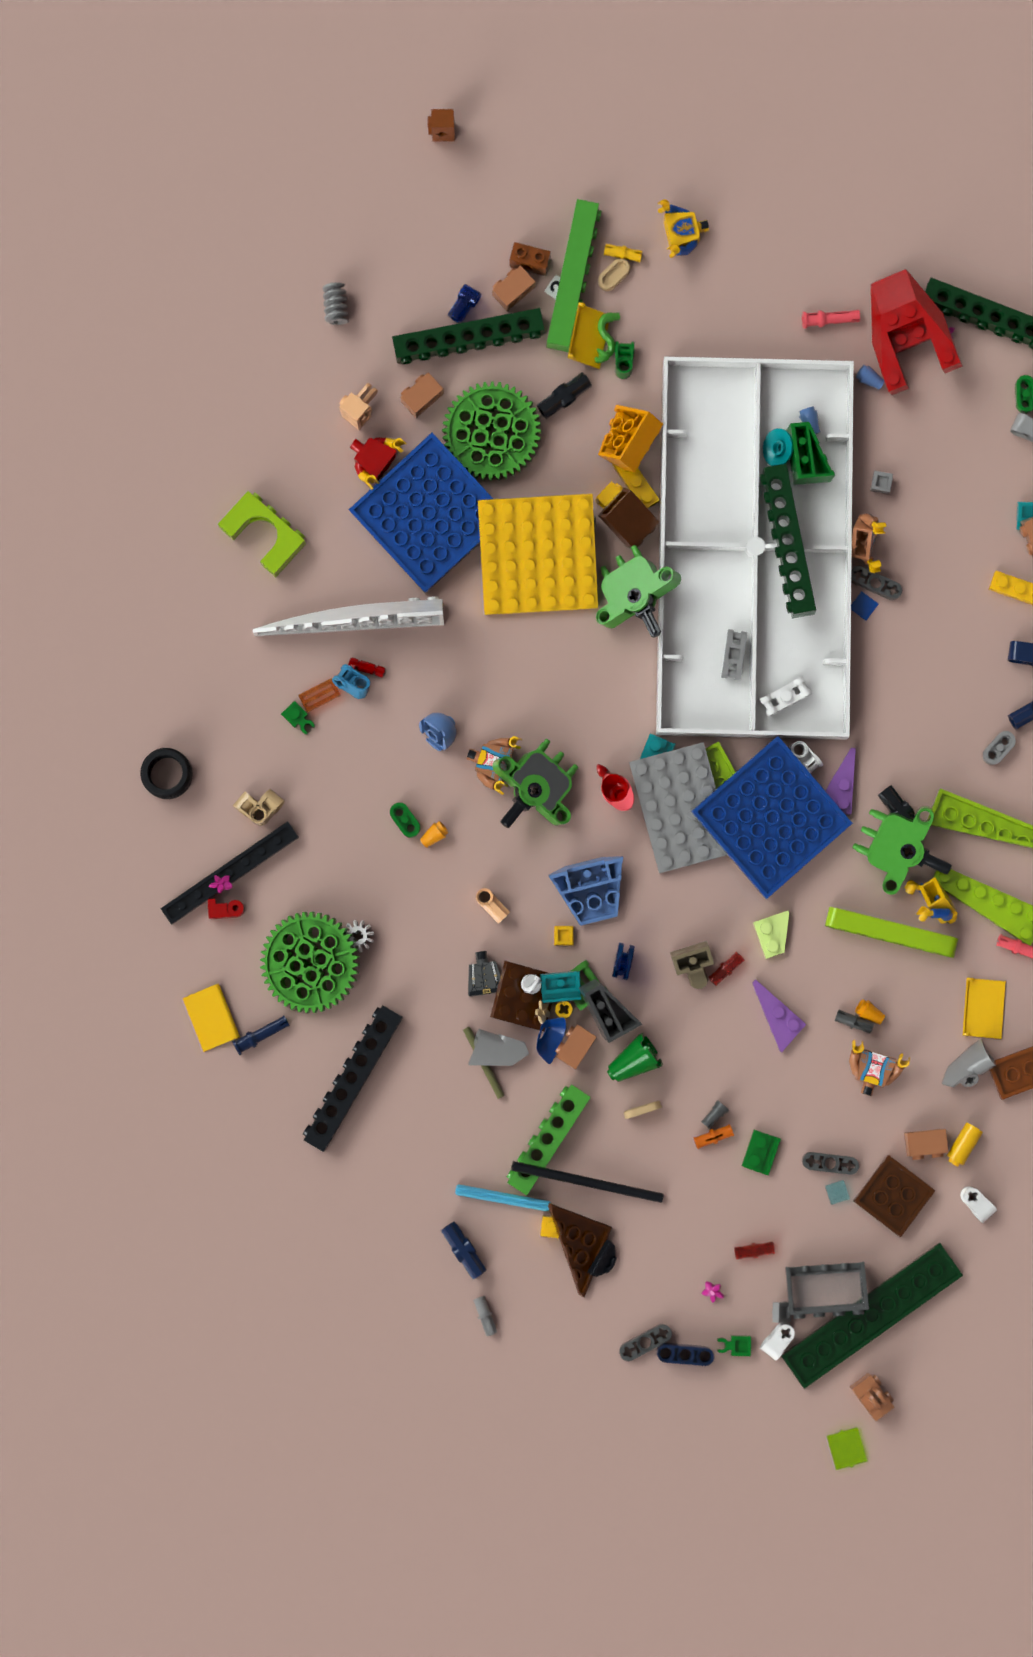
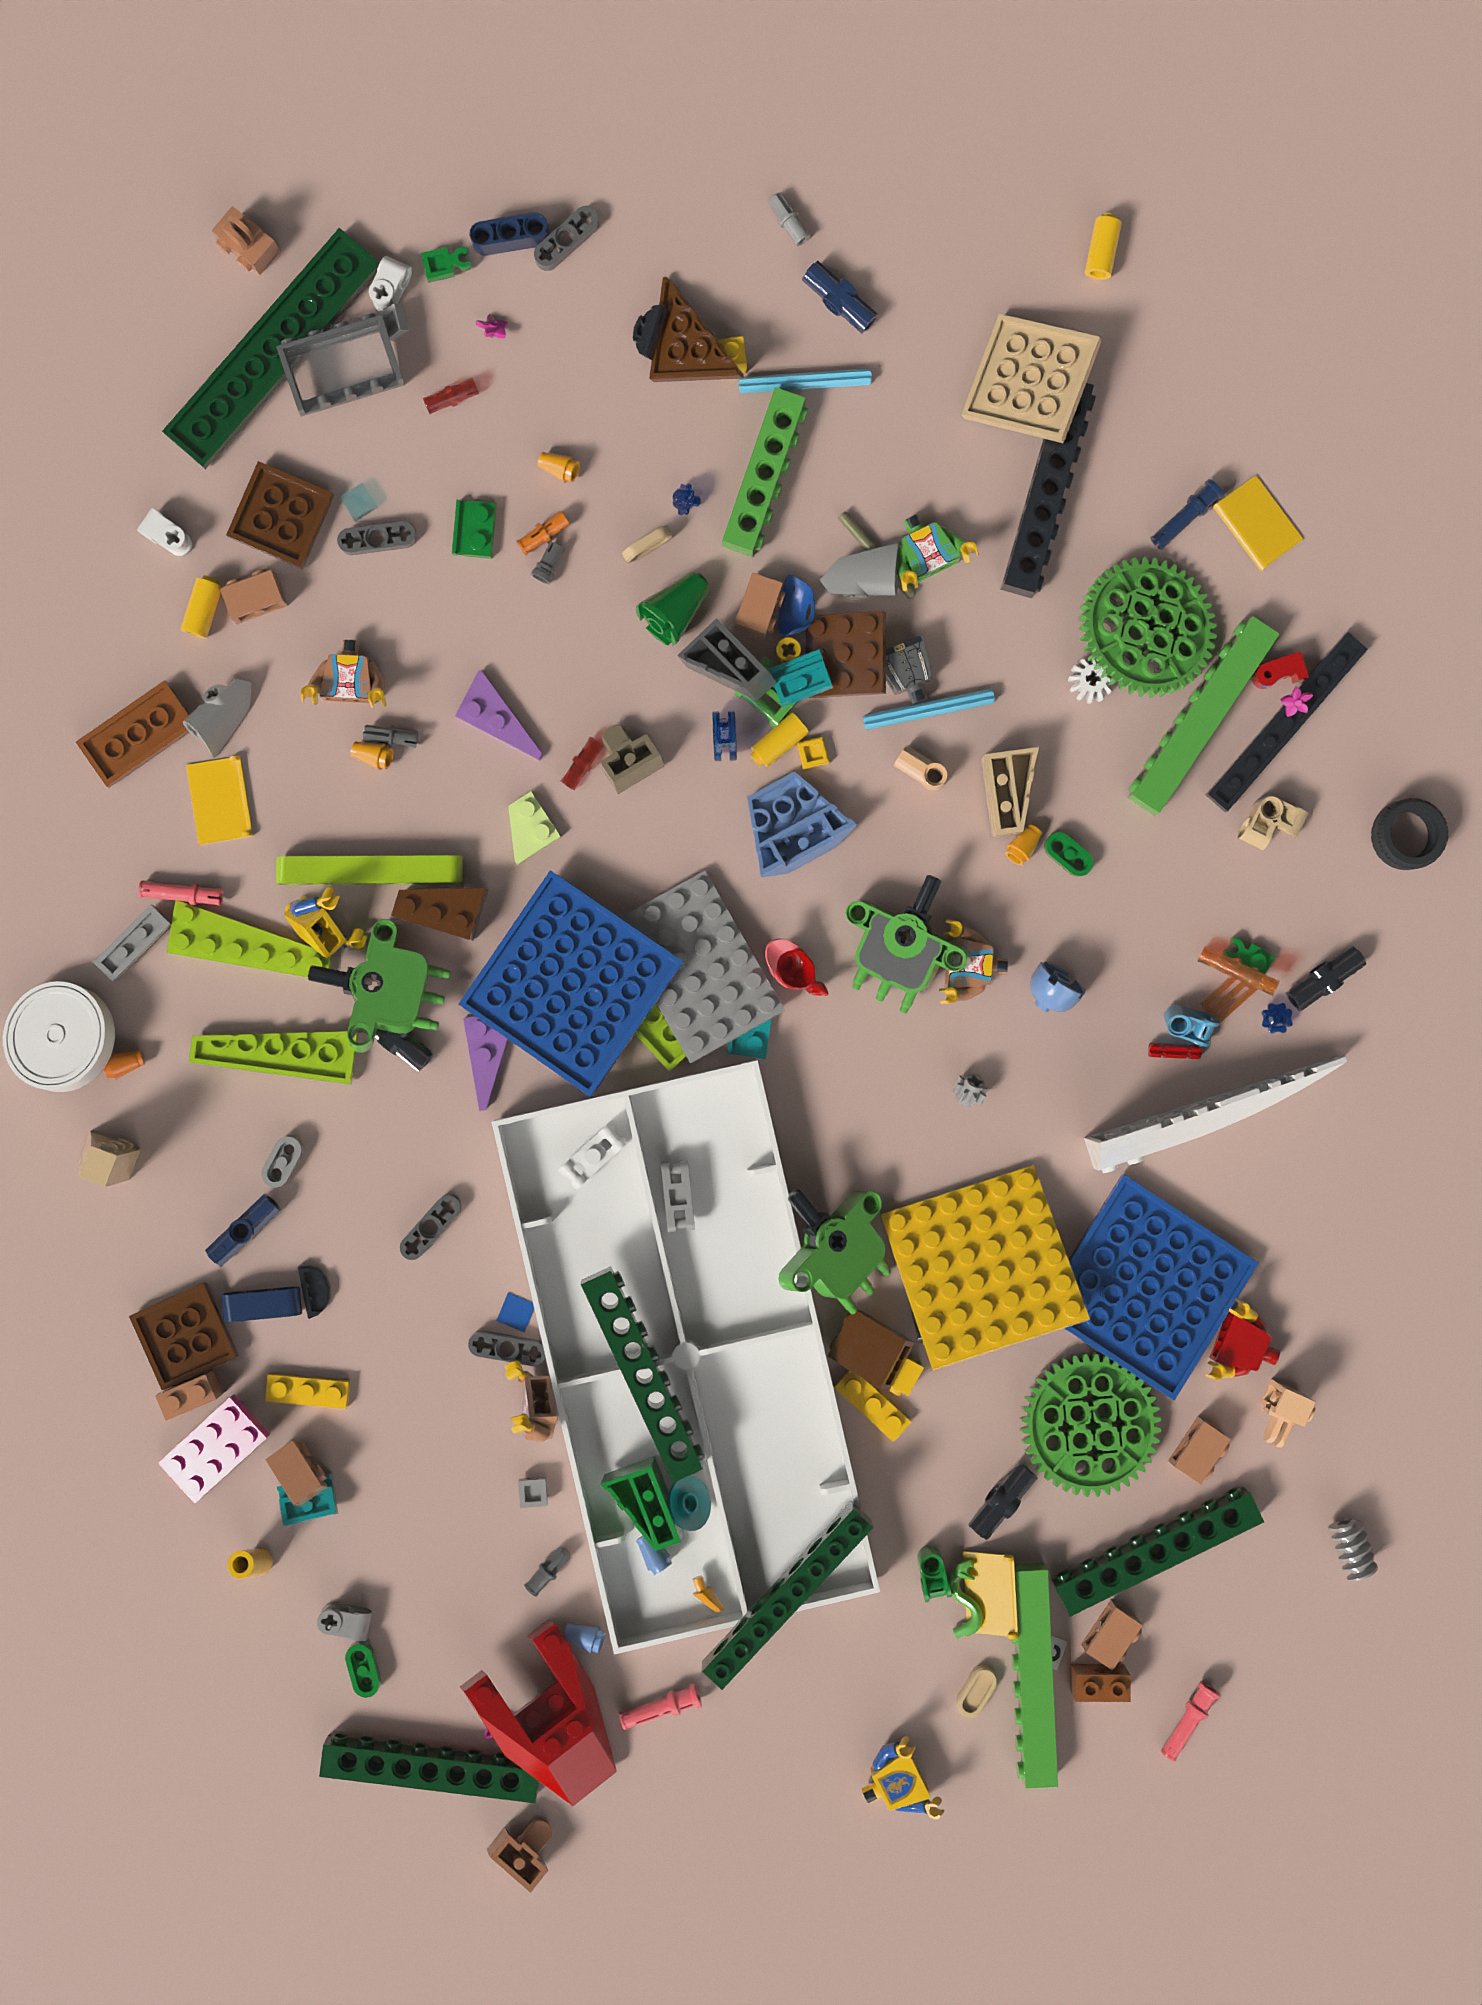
camera: 170 degrees right, 5 degrees up
(250, 690) = (1326, 978): none -> black piece
(252, 509) = (1330, 1196): lime arch -> none
(269, 1238) = (1103, 247): none -> yellow brick
(287, 891) = (1202, 716): none -> bright green brick
(291, 671) = (1277, 1018): none -> clear blue plant
(304, 705) = (1239, 971): none -> clear orange pin
(345, 1156) = (1031, 378): none -> tan plate
(435, 876) = (1007, 788): none -> tan wedge
(441, 125) = (1273, 1844): dark orange brick -> none
(448, 1054) = (929, 551): none -> torso
(467, 299) = (1172, 1602): clear blue piece -> none
(469, 224) = (1196, 1710): none -> coral pin
(475, 945) = (928, 709): none -> medium azure axle
(515, 676) = (970, 1090): none -> light grey gear
(531, 984) = (842, 670): white tile -> none
(542, 1012) = (816, 637): tan plant -> none
(586, 949) = (778, 740): none -> yellow brick
(587, 1181) = (698, 426): black piece -> none
(608, 1135) = (685, 499): none -> clear blue plant
(623, 252) = (972, 1725): yellow pin -> none
(629, 437) = (898, 1464): light orange wedge -> none
(689, 1180) = (559, 465): none -> light orange cone
(728, 370) = (786, 1595): none -> dark green brick
(781, 384) = (706, 1594): none -> light orange bar
(807, 756) = (543, 1079): white piece -> none
(846, 1448) = (264, 167): clear neon green piece -> none
(848, 891) = (442, 909): none -> reddish brown wedge
(884, 427) = (547, 1571): none -> dark grey axle
(916, 666) = (422, 1246): none -> dark grey beam
(948, 246) = (520, 1854): none -> nougat brick
(997, 656) = (315, 1289): none -> black tile

